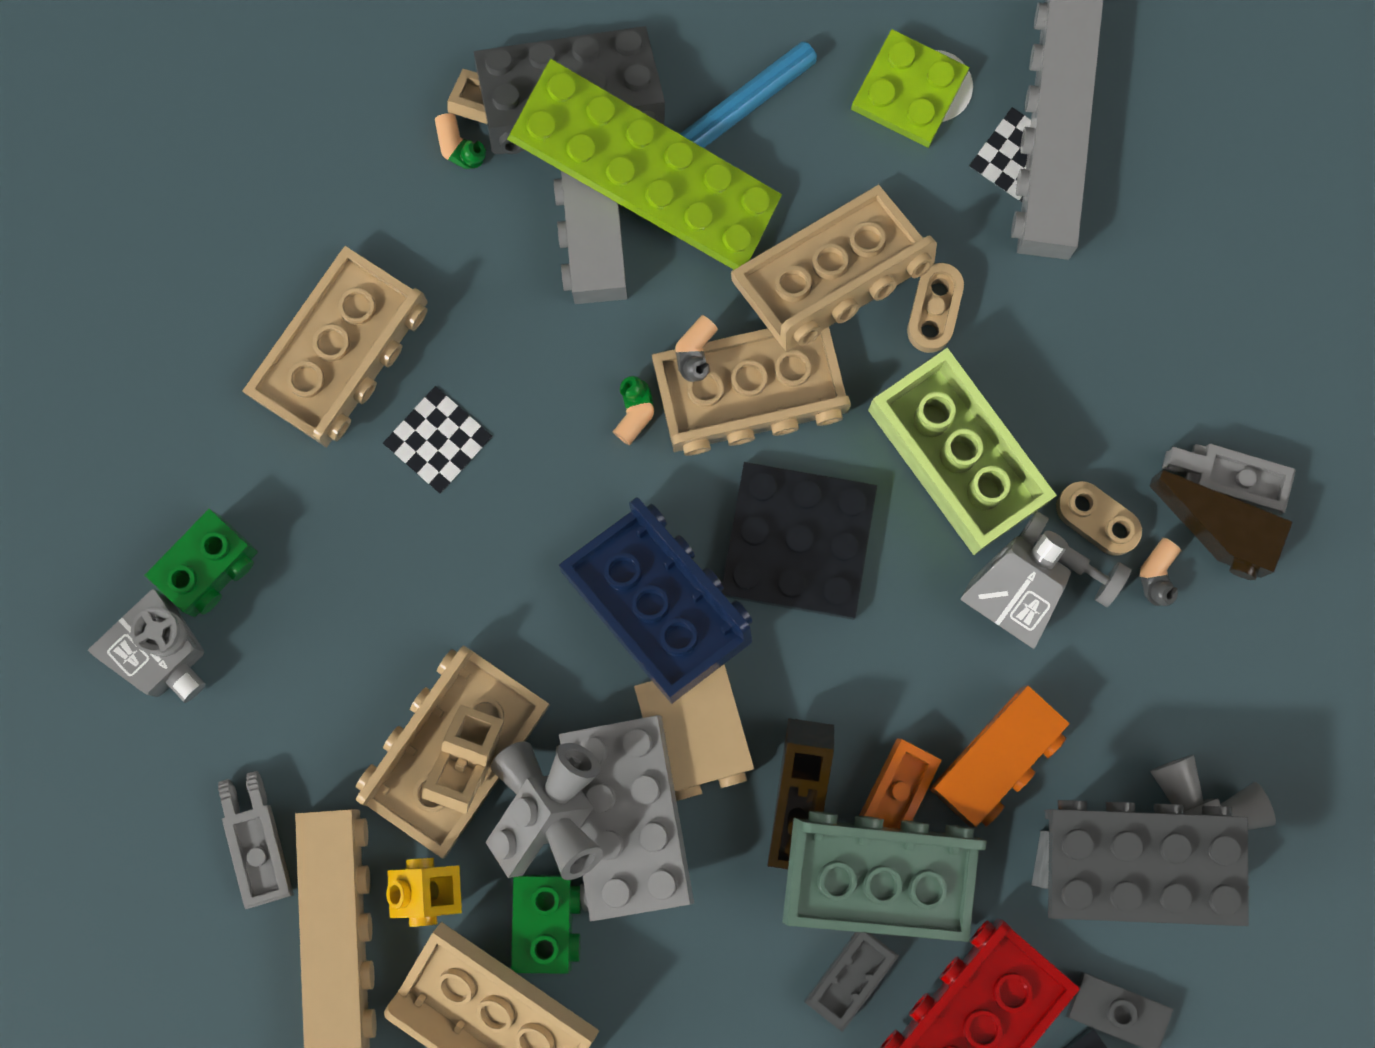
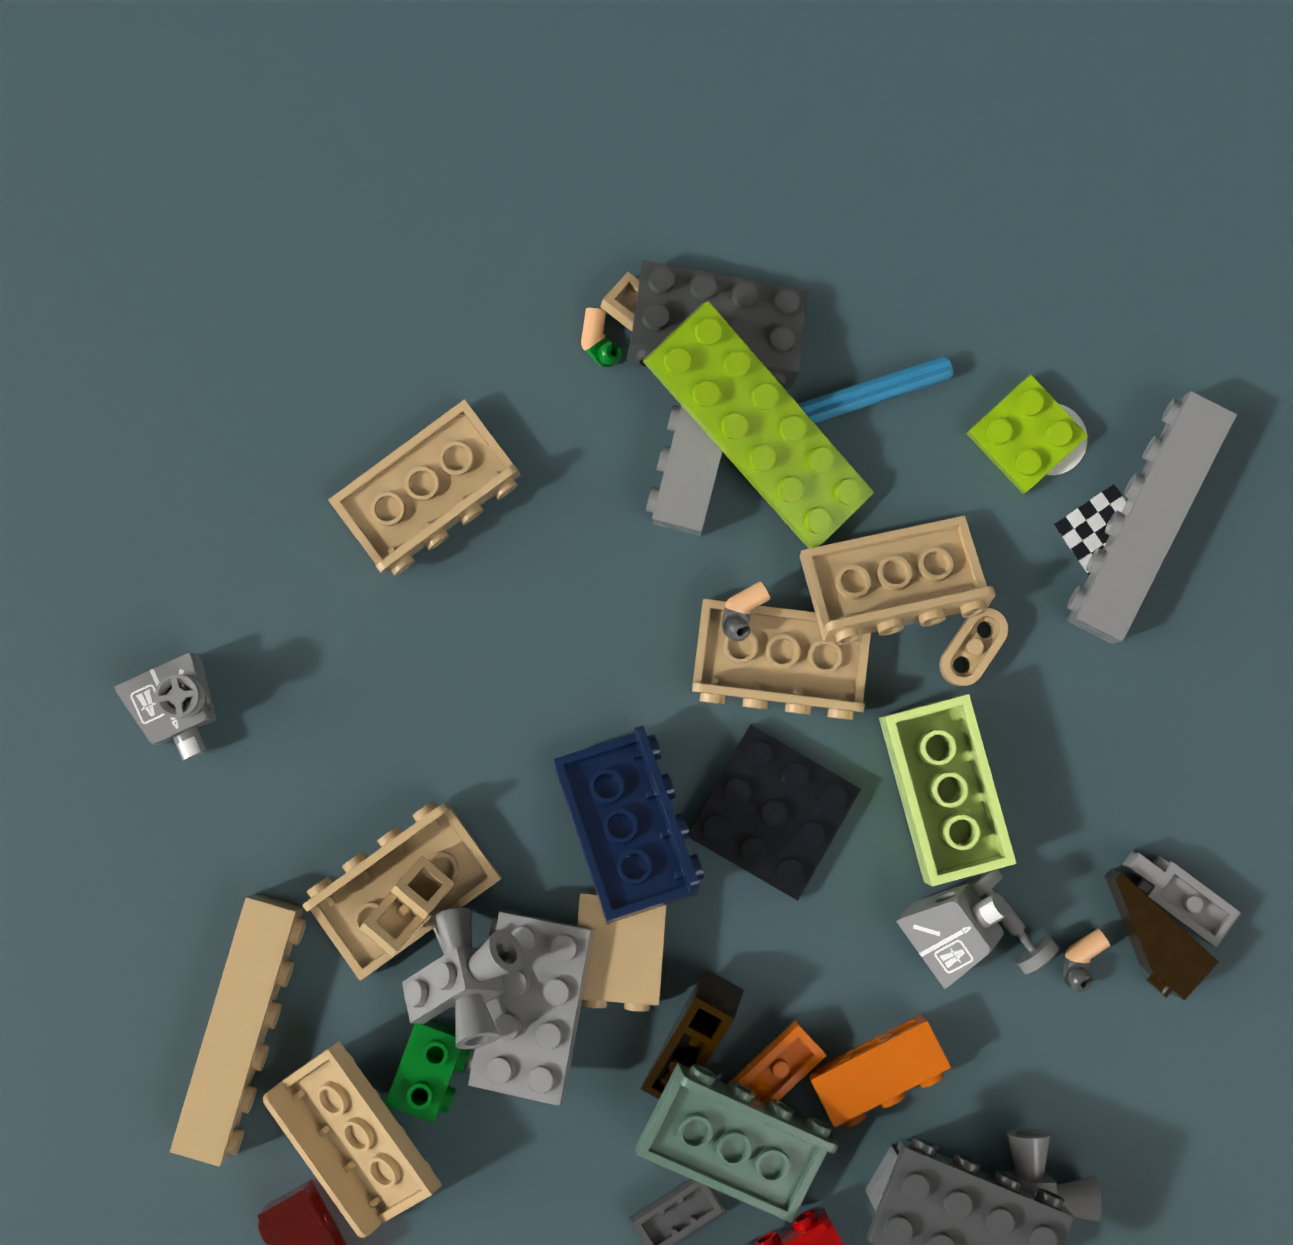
camera: 20 degrees right, 5 degrees up
(202, 564) = (240, 643): green brick -> none
(254, 844) = (202, 907): light grey hinge -> none
(424, 892) = (334, 1005): yellow brick -> none
(437, 439) = (486, 603): sticker -> none
(638, 407) = (674, 640): arm -> none
(1098, 521) = (1048, 891): tan plate -> none

